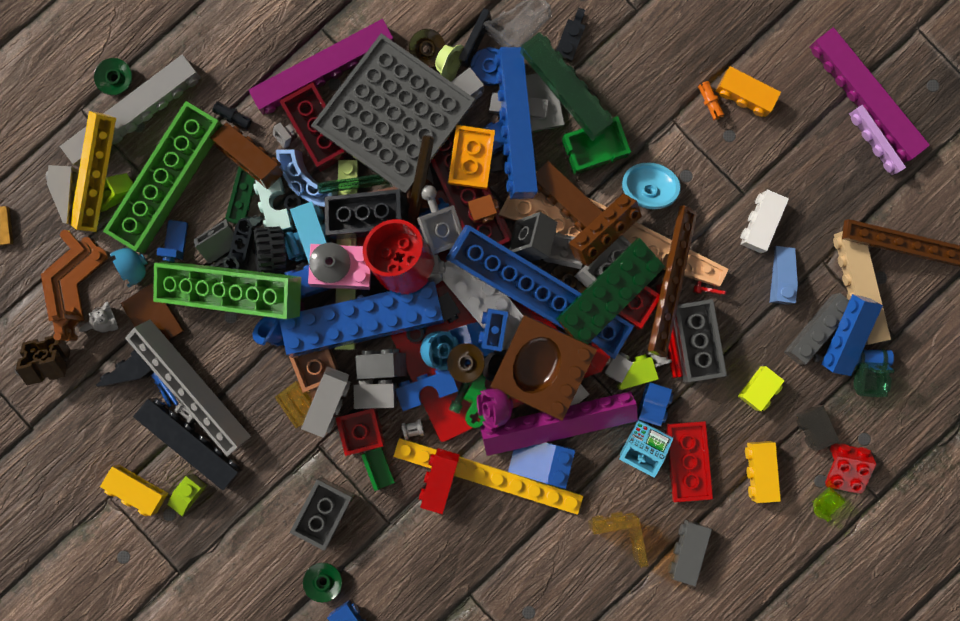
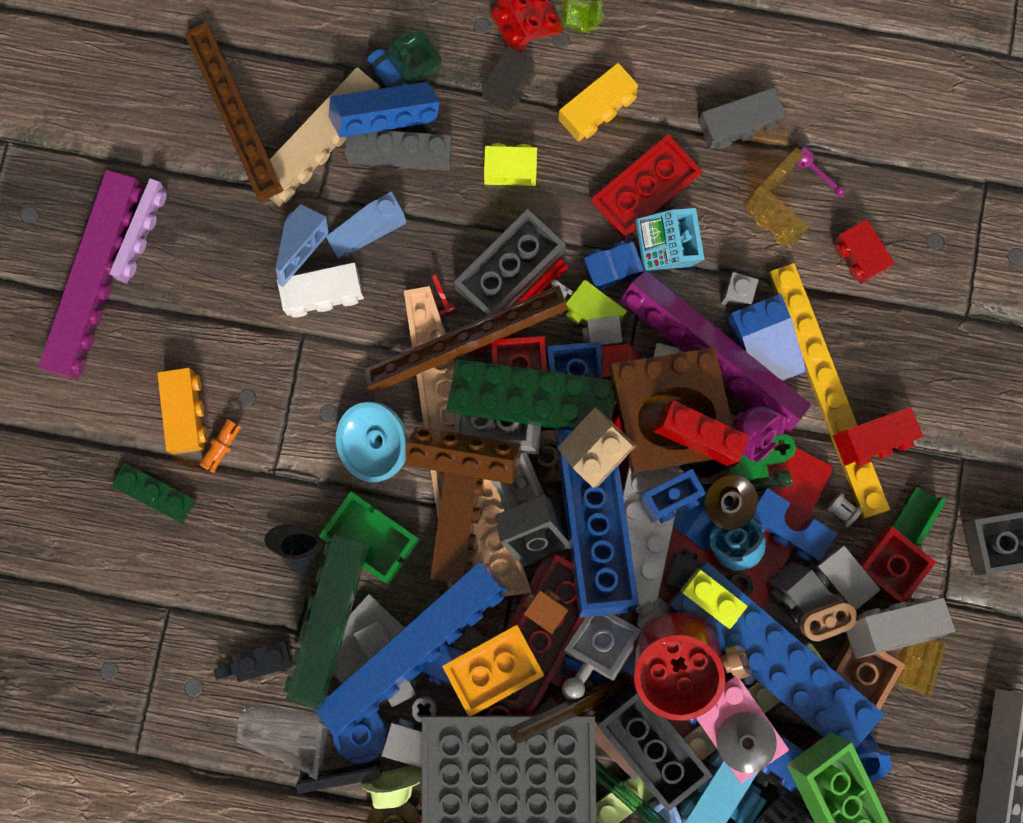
camera: 125 degrees left, 5 degrees down
(359, 363) = (826, 621): none -> medium nougat plate
(376, 290) = (737, 662): none -> medium nougat plate
(420, 304) = (714, 598): none -> neon yellow brick
(482, 107) = (423, 700): none -> light grey bush
(518, 370) = (701, 433): none -> red brick
(554, 303) = (596, 447): none -> tan slope
(554, 561) = (863, 252): none -> red brick
(584, 467) = (739, 291): none -> light grey brick
(622, 101) = (295, 545): none -> black piece
(636, 572) = (807, 161): none -> magenta hinge
(710, 45) = (153, 493): none -> dark green plate
(805, 230) = (300, 237): none -> medium blue slope

